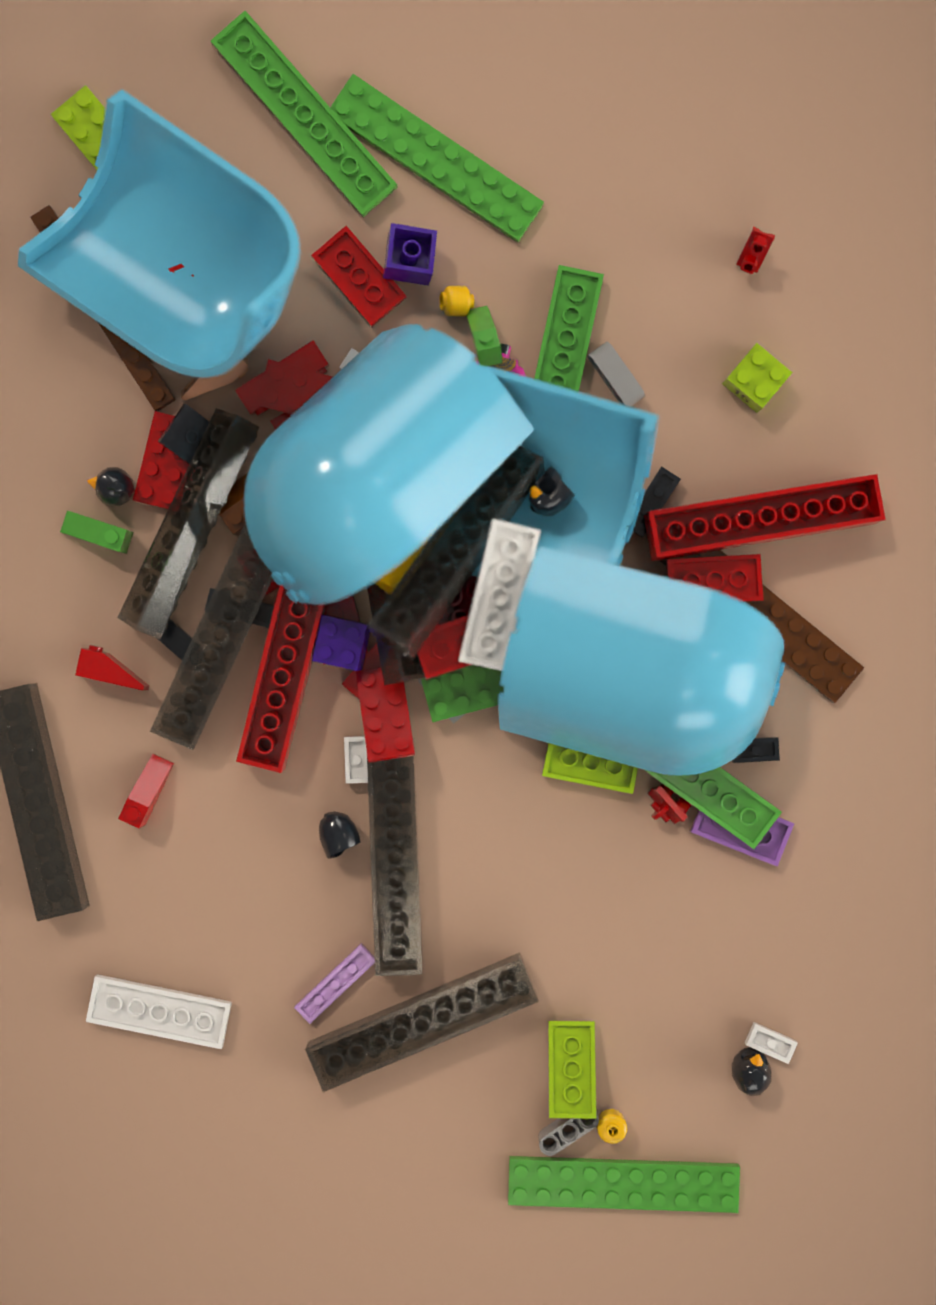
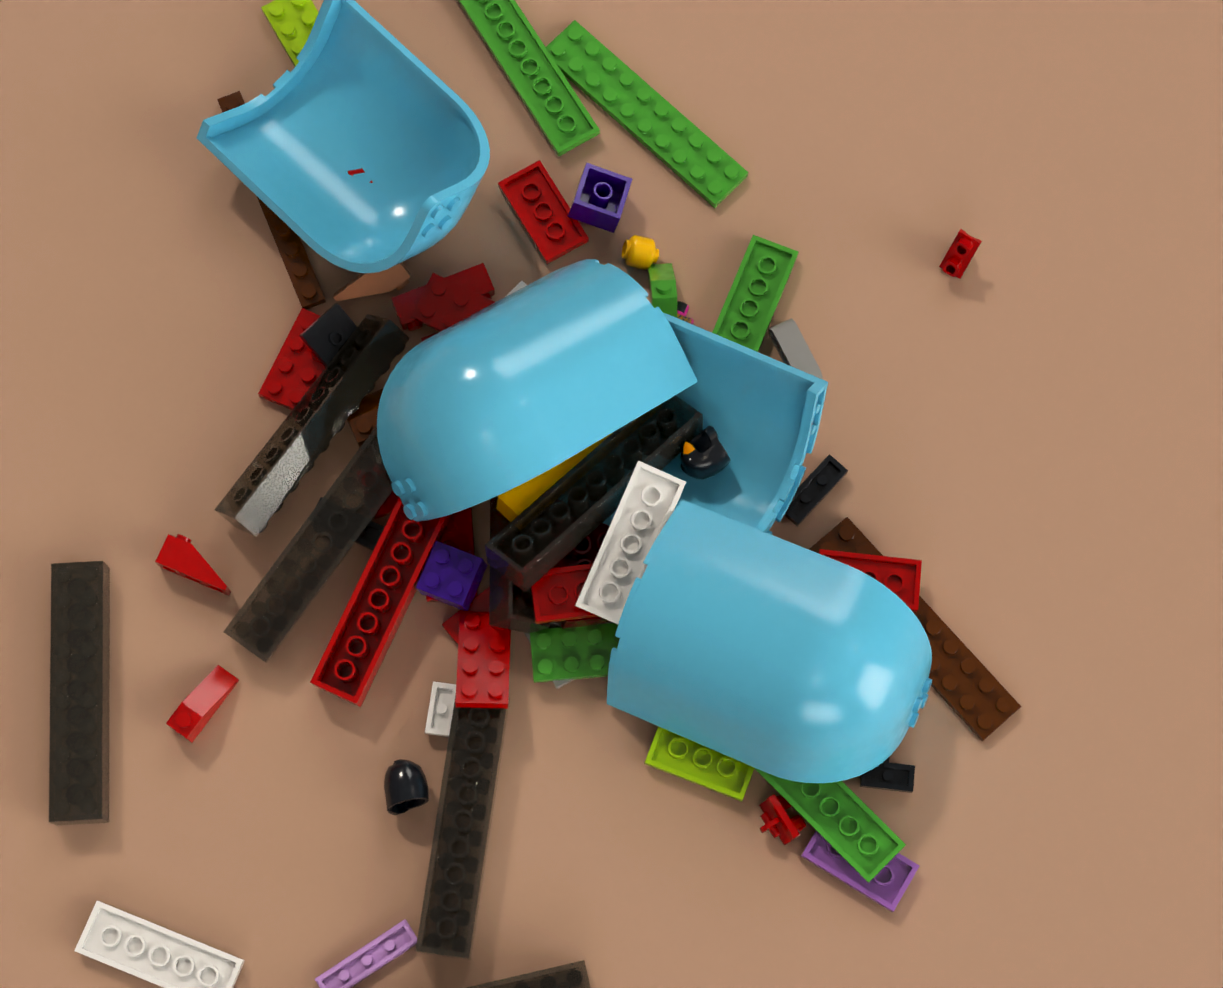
camera: 15 degrees right, 15 degrees down
(96, 532) = (213, 419): bright green slope -> none
(113, 486) = (241, 375): black piece -> none
(176, 639) = (269, 544): black tile -> none
(757, 378) = (944, 381): lime brick -> none
(764, 517) = (931, 523): red brick -> none

